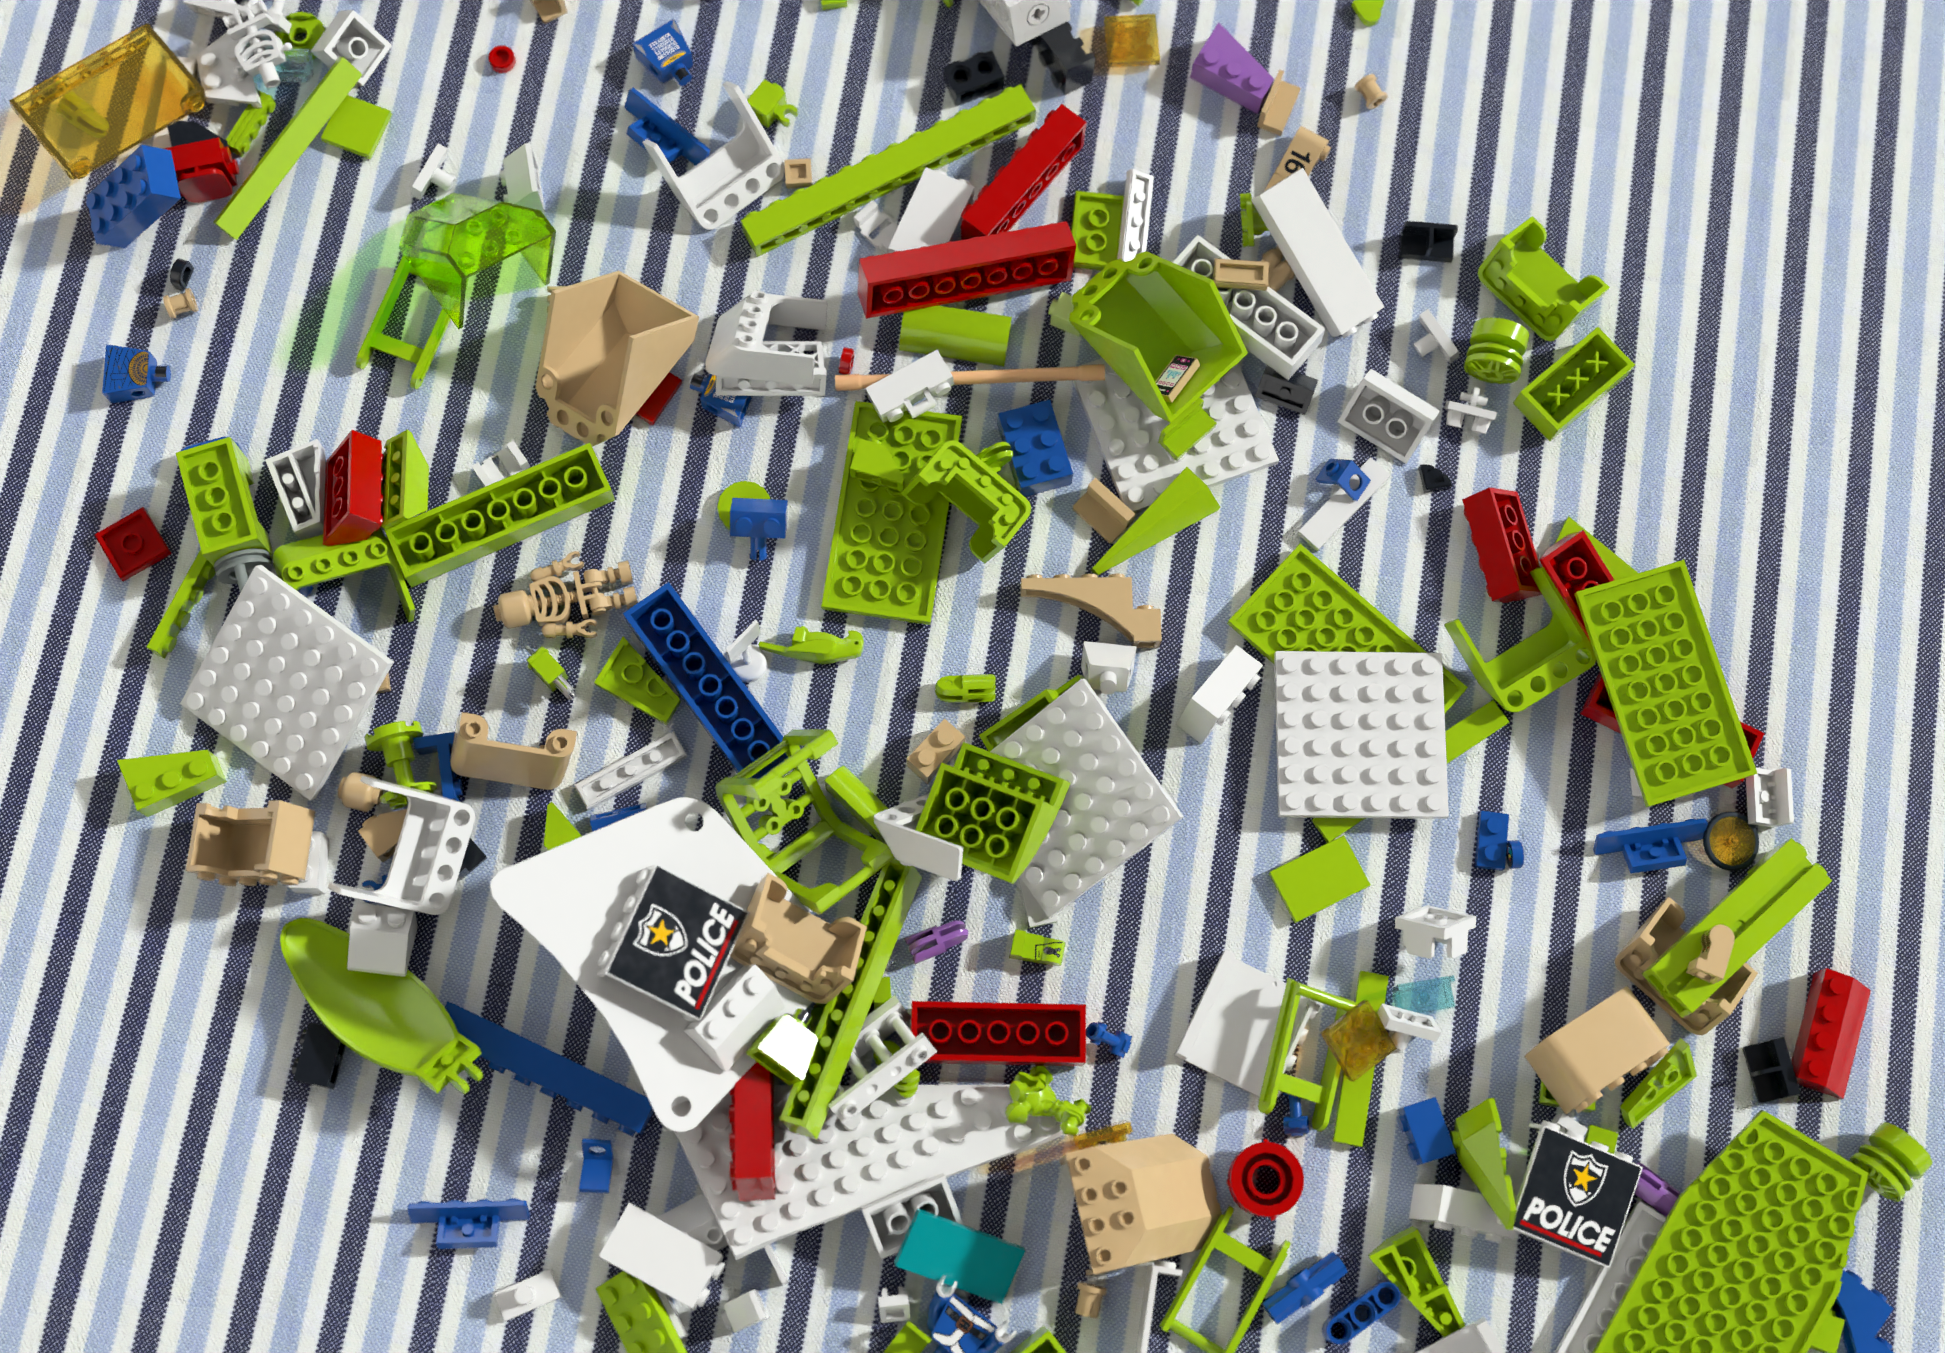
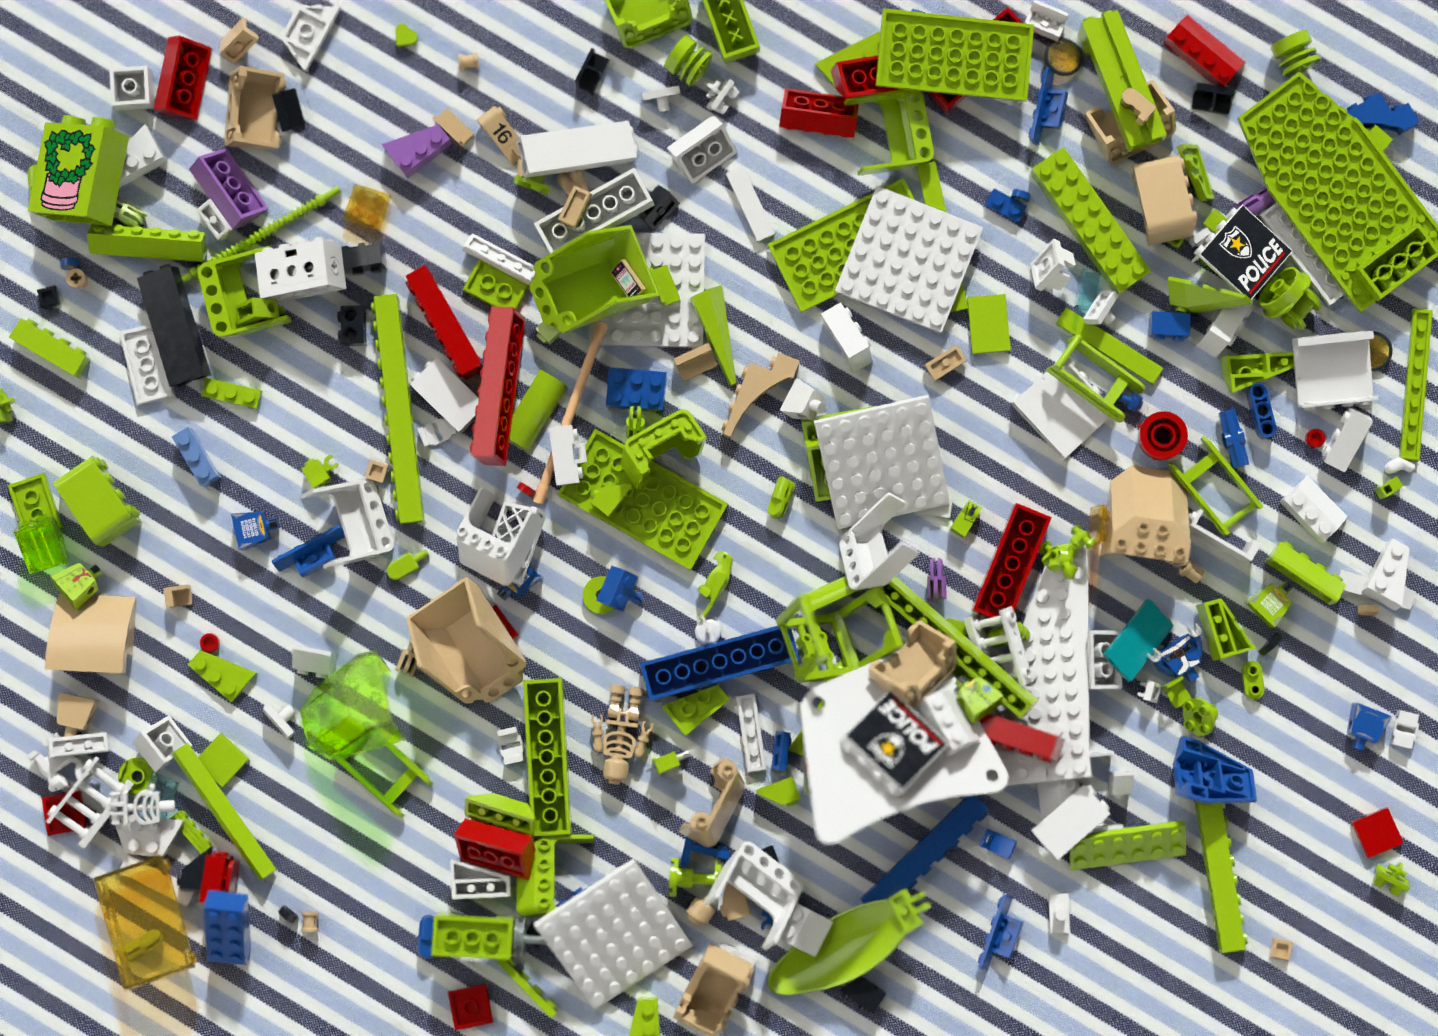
camera: 60 degrees left, 10 degrees up
(131, 374) = (349, 970): blue torso -> none
(466, 87) = (222, 674): none -> lime wing
(690, 252) = (405, 565): none -> lime piece
(935, 749) = (815, 533): tan brick -> none
(992, 810) = (875, 513): lime slope -> none
(1118, 1043) = (1043, 491): blue bar -> none
(1241, 839) = (945, 362): none -> tan plate
(1339, 472) = (730, 198): blue bracket -> none
(1358, 1040) = (1100, 343): clear yellow tile -> none
(1433, 479) = (755, 138): black tile -> none
(1521, 963) = (1090, 221): none -> lime brick
(1545, 1275) = (1289, 297): none -> lime piece

